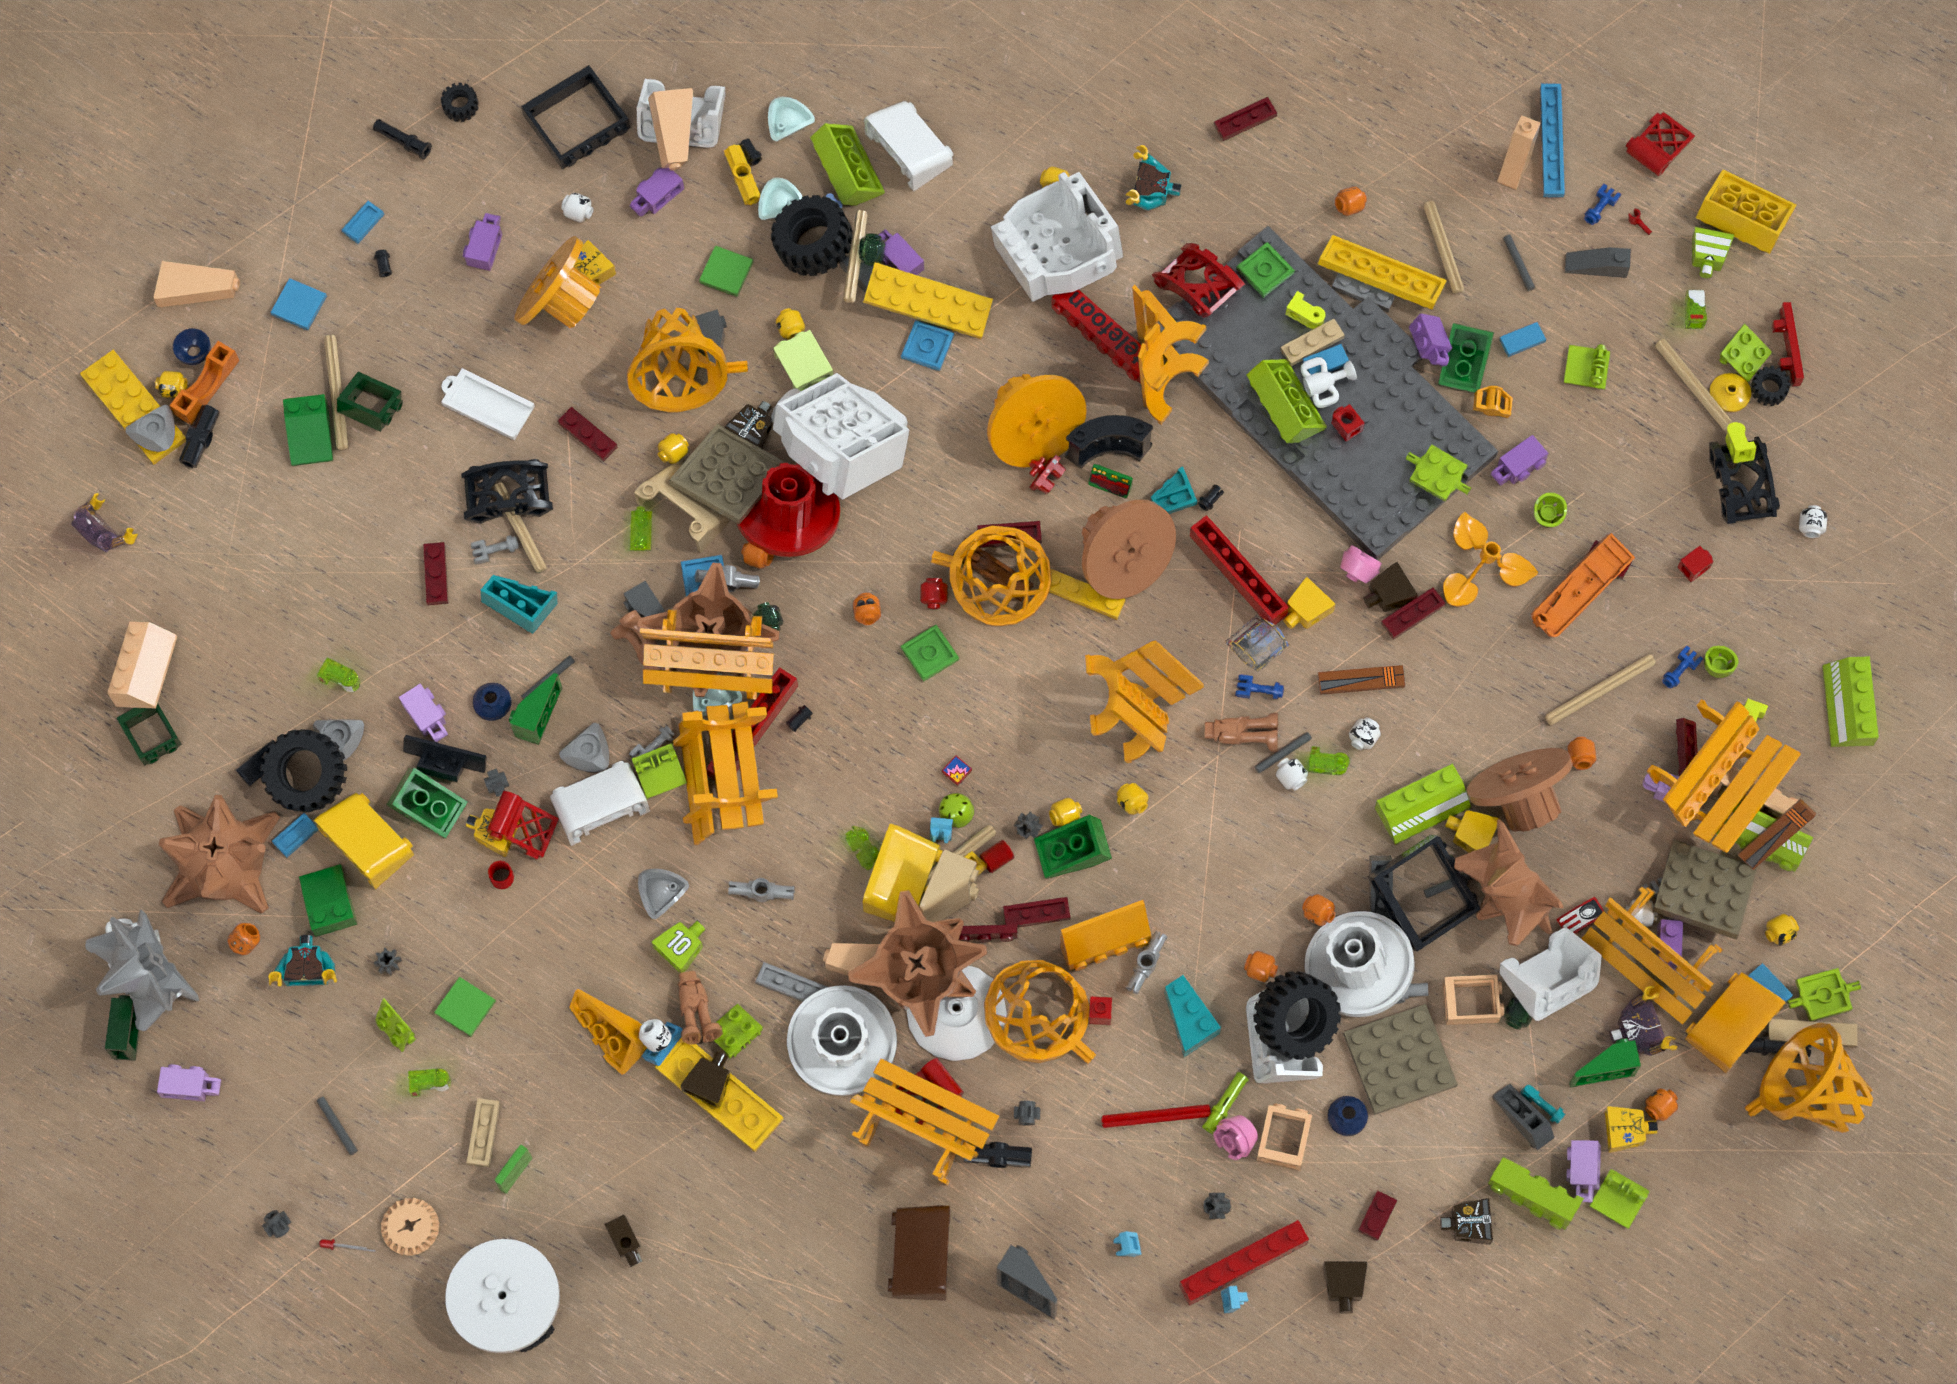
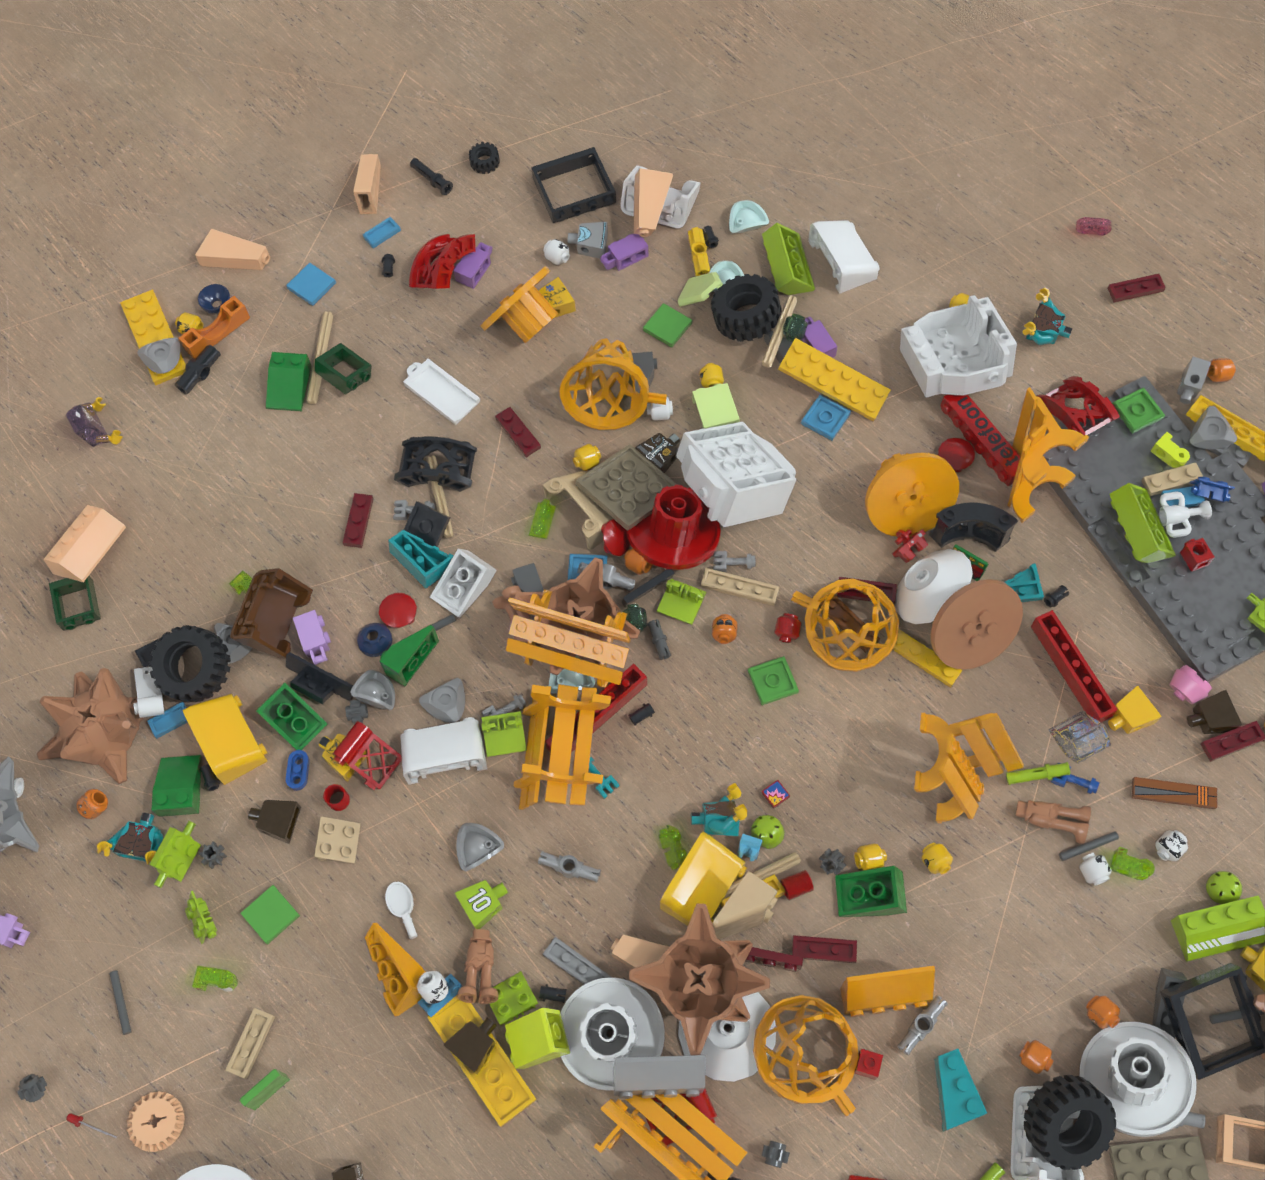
camera: 15 degrees right, 5 degrees down
(265, 812) = (148, 695): none -> white door
(330, 164) = (367, 184): none -> light nougat slope
(350, 968) = (175, 854): none -> lime plate
(362, 889) = (211, 781): none -> black pin
(370, 695) = (269, 611): none -> reddish brown windscreen
(443, 910) = (276, 818): none -> dark brown torso
(450, 857) = (296, 770): none -> blue plate
(452, 259) = (439, 273): none -> red fence
(508, 664) = (397, 610): none -> red dish
(510, 755) = (374, 690): none -> light grey hat
(513, 918) = (337, 840): none -> tan hinge
(515, 562) = (427, 523): none -> black plate
(571, 618) = (462, 582): none -> white slope
(598, 966) = (400, 903): none -> white piece
(612, 183) = (590, 239): none -> light grey torso
(726, 535) = (615, 538): none -> red dish
(742, 379) = (660, 411): none -> white head
(753, 220) = (698, 288): none -> yellowish green tile
(770, 1060) = (536, 1038): none -> neon yellow slope
(772, 1017) = (550, 993): none -> black pin
(774, 581) = (647, 587): none -> black tile
(782, 793) = (605, 784): none -> teal hinge
(799, 635) = (659, 639): none -> dark grey pin
(813, 588) = (681, 601): none -> lime hinge
(851, 533) = (721, 561): none -> light grey hinge
(873, 558) = (740, 586): none -> tan tile
(899, 1063) = (659, 1076): none -> light grey slope
(907, 804) = (721, 816): none -> torso
(1074, 514) = (930, 584): none -> white dish
(1078, 359) = (957, 453): none -> red dish
(1184, 51) = (1093, 226): none -> clear pink plate
(1220, 690) = (1047, 771): none -> lime pin
(1320, 216) = (1193, 379): none -> light grey torso
(1344, 346) = (1219, 489): none -> blue hinge
(1347, 278) = (1212, 431): none -> light grey hat
(1421, 760) = (1225, 883): none -> lime helmet

